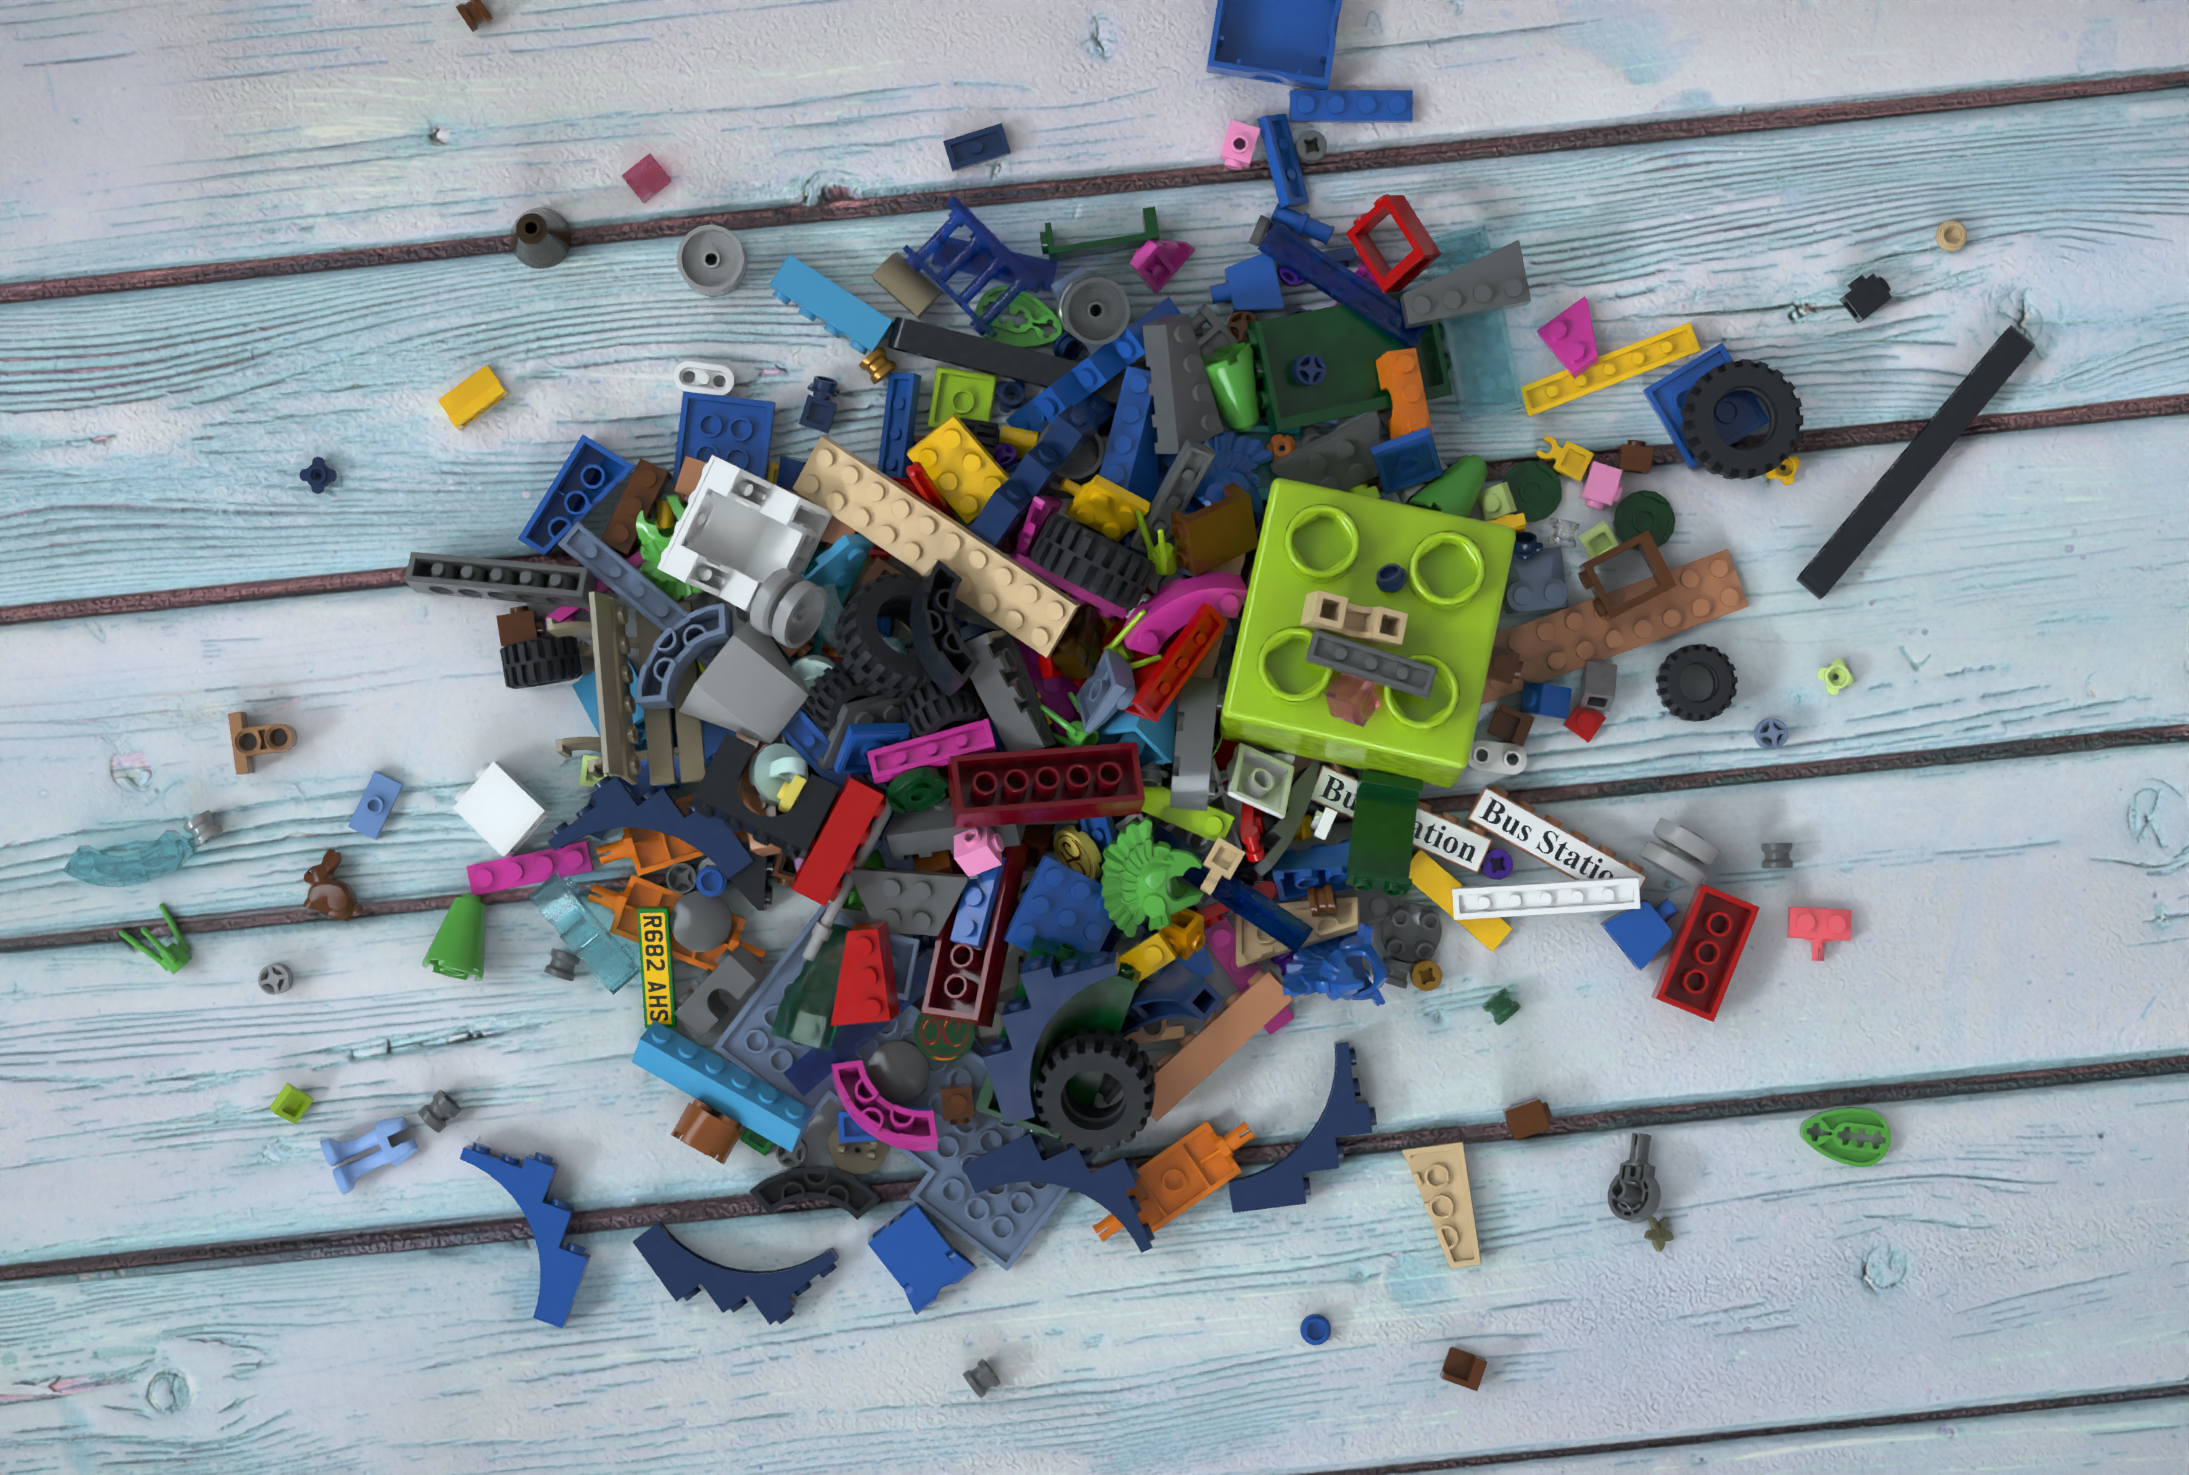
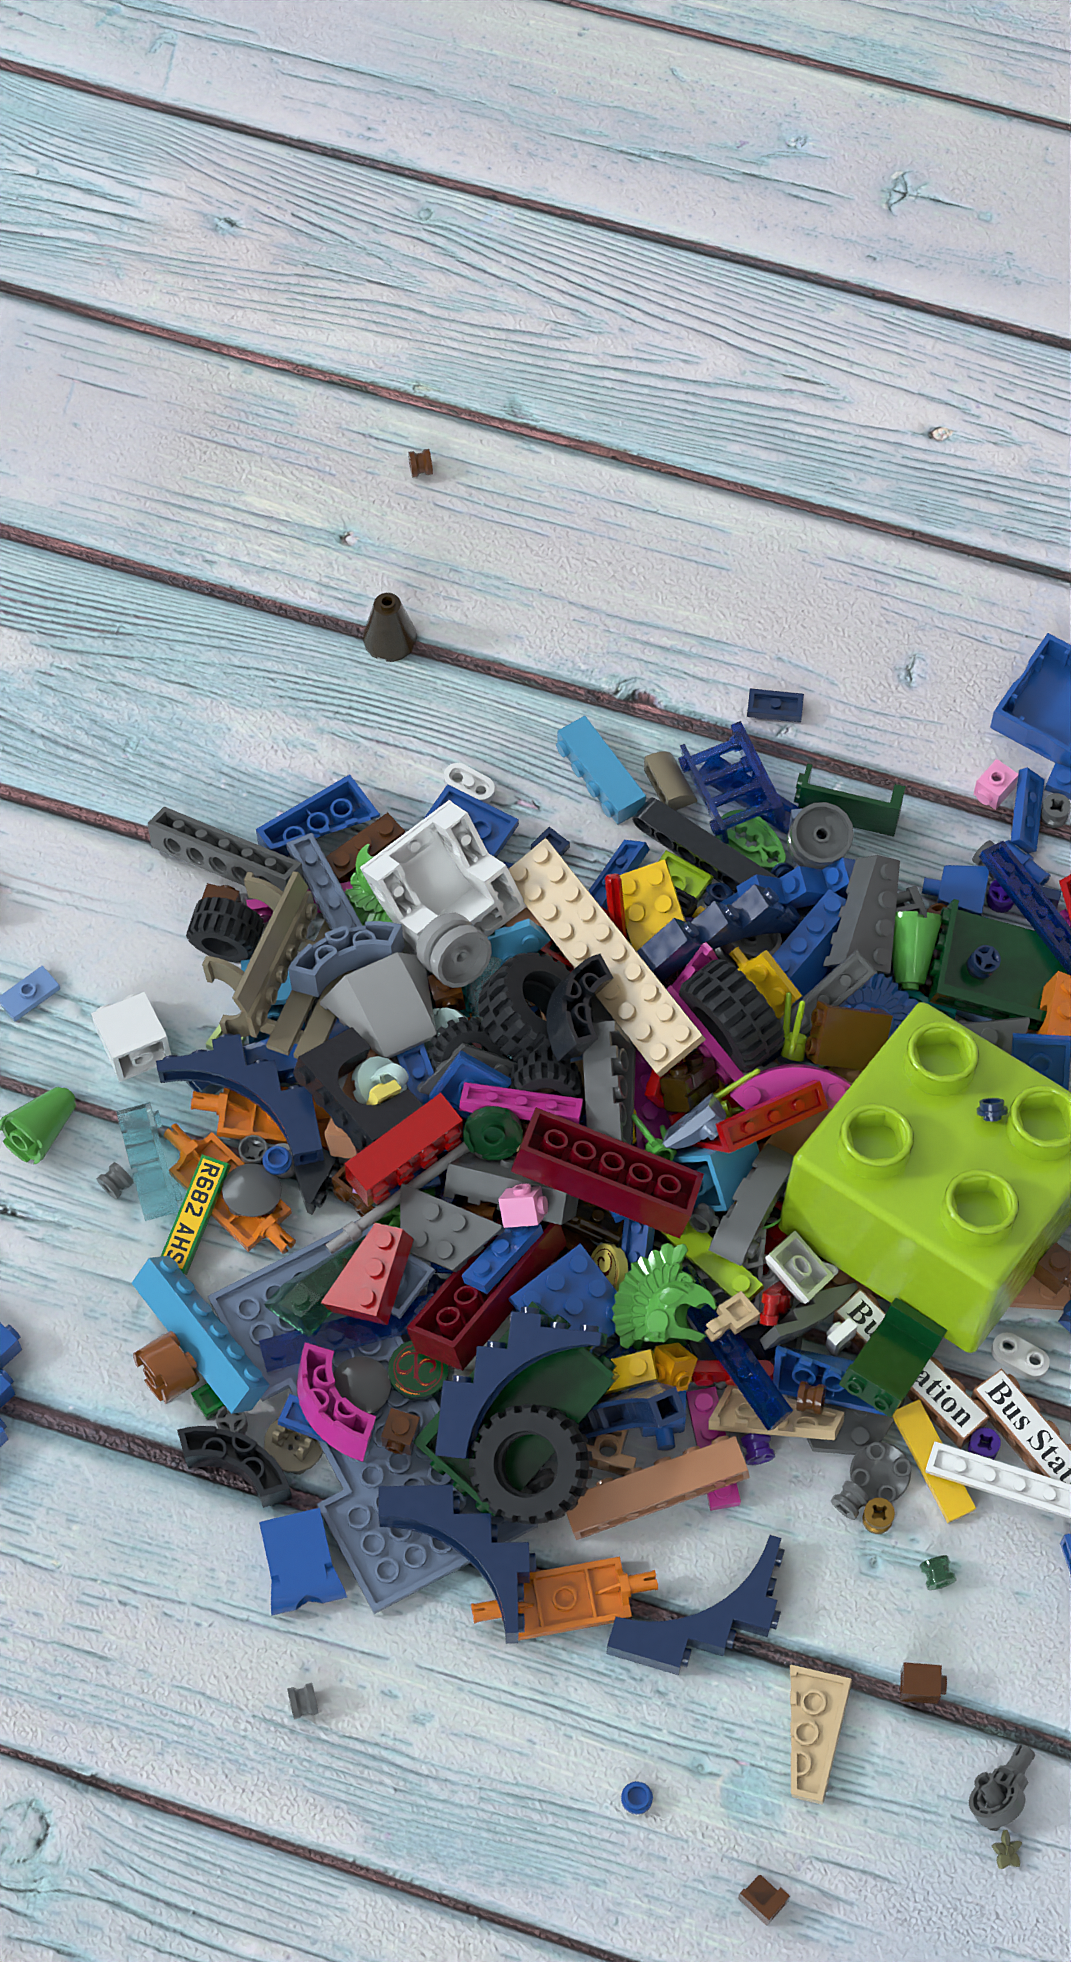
camera: 25 degrees right, 25 degrees down
(327, 475) = (124, 737): dark blue plate -> none
(473, 397) = (275, 727): yellow panel -> none
(529, 868) = (125, 1093): dark pink plate -> none
(646, 178) = (495, 624): clear pink panel -> none
(703, 1007) = (216, 1261): dark grey arch -> none
(705, 243) = (519, 698): light grey wheel -> none
(770, 1290) = (116, 1516): dark blue arch -> none
(824, 387) = (564, 827): dark blue plate -> none
(878, 365) = (617, 828): pearl gold wheel -> none
(1160, 261) = (890, 837): dark pink wing -> none
(1304, 830) = (817, 1338): yellow plate -> none
(1338, 969) = (799, 1466): blue piece -> none
(1352, 699) = (915, 1186): panel -> none
(1366, 624) = (957, 1133): tan arch -> none
(1371, 664) = (945, 1159): dark grey tile -> none
(1510, 725) = (1045, 1330): reddish brown panel -> none

